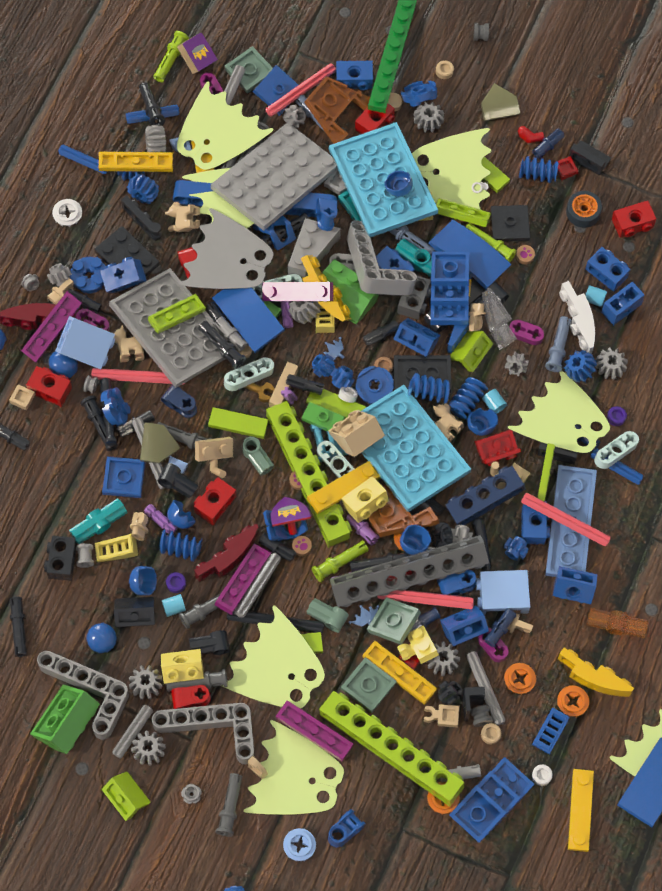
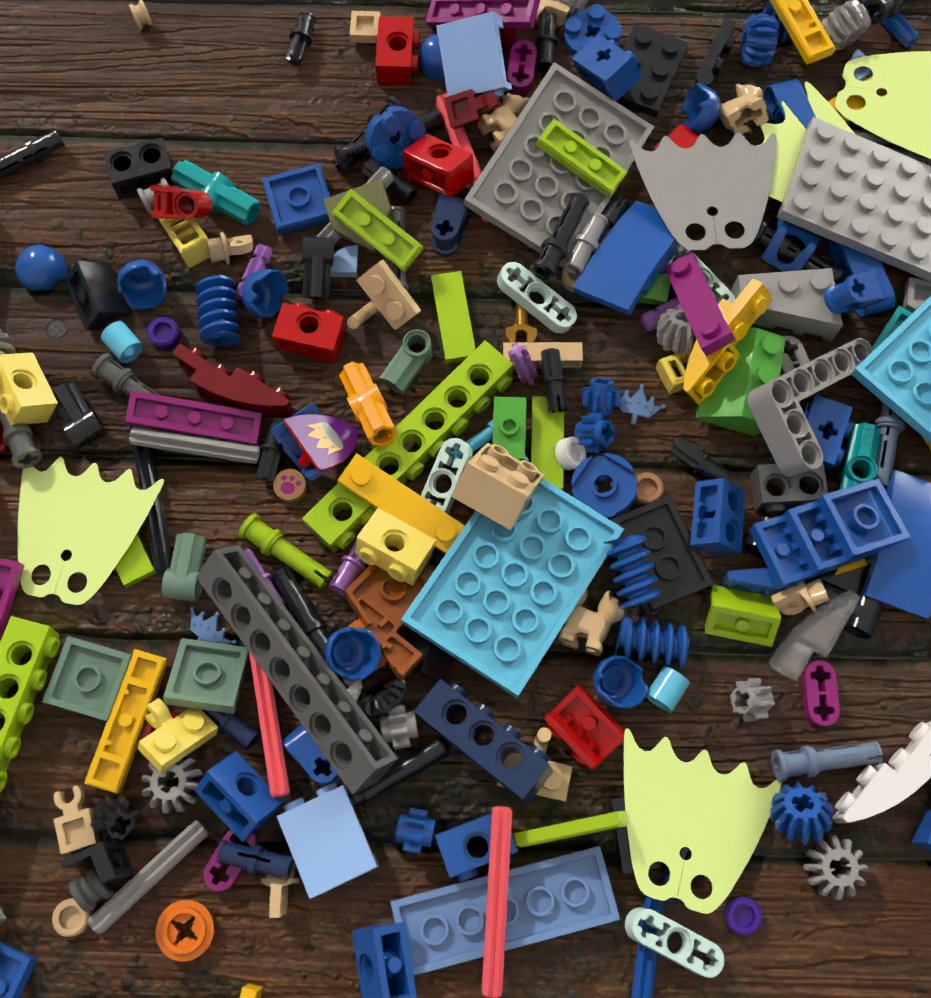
camera: 70 degrees right, 5 degrees up
(90, 384) = (422, 100): light grey bush -> none
(102, 541) = (174, 203): none -> red piece
(114, 361) = (465, 107): none -> dark red plate
(143, 391) = (438, 165): none -> red brick
(172, 238) = (702, 108): none -> blue hair
(174, 437) = (377, 230): none -> lime tile
(276, 483) = (368, 404): none -> light orange piece

